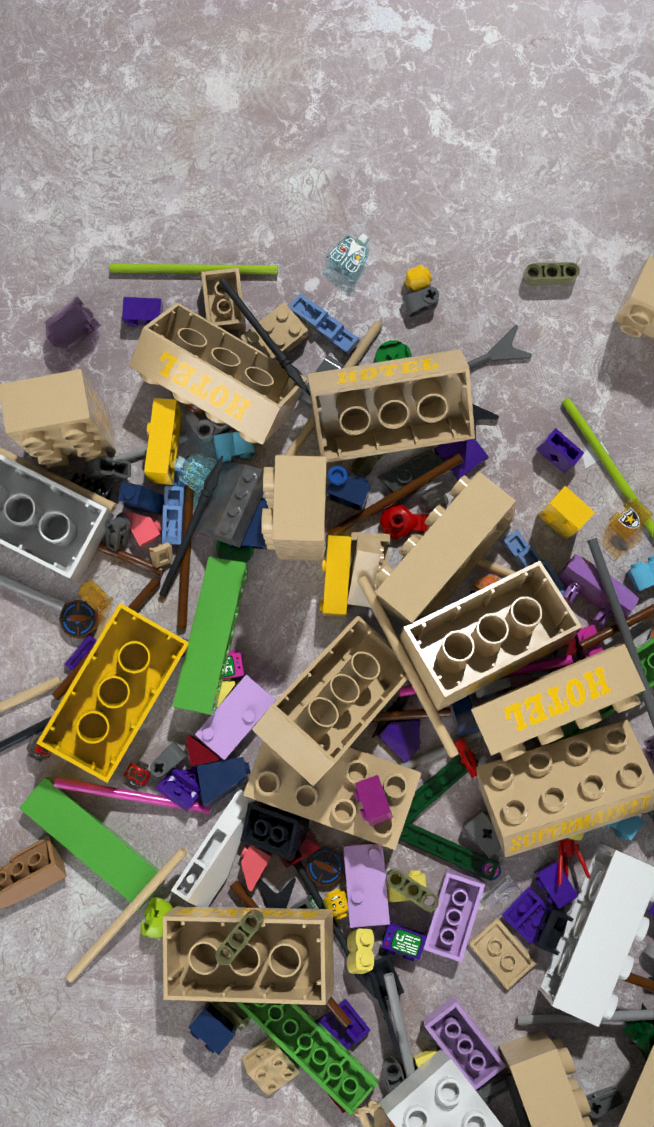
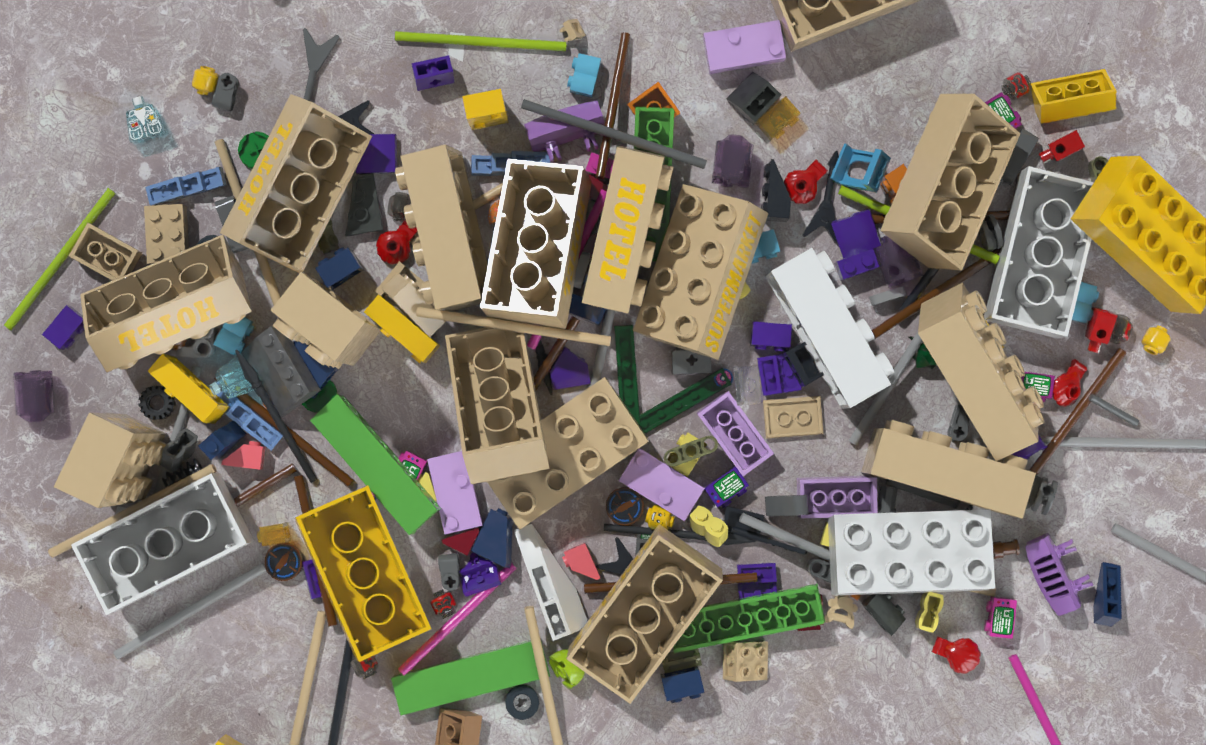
camera: 55 degrees left, 5 degrees up
(93, 906) = (512, 701): none -> black bush
(117, 531) = (235, 479): dark grey piece -> none
(126, 418) = (147, 409): none -> black tyre
(161, 555) = (280, 457): tan tile -> none
(231, 942) = (623, 618): olive beam -> none
(274, 829) = (565, 525): black slope -> none
(283, 360) = (208, 243): black piece -> none
(308, 846) = (594, 517): dark red slope -> none
(337, 475) = (320, 269): blue tile -> none
(373, 800) = (596, 429): magenta brick -> none
(395, 496) = (372, 233): reddish brown piece -> none
(426, 1005) = (786, 505): none -> dark grey beam
(461, 745) = (609, 330): red pin -> none
(566, 849) = (749, 307): red plant -> none
(630, 518) = (529, 58): clear yellow brick -> none

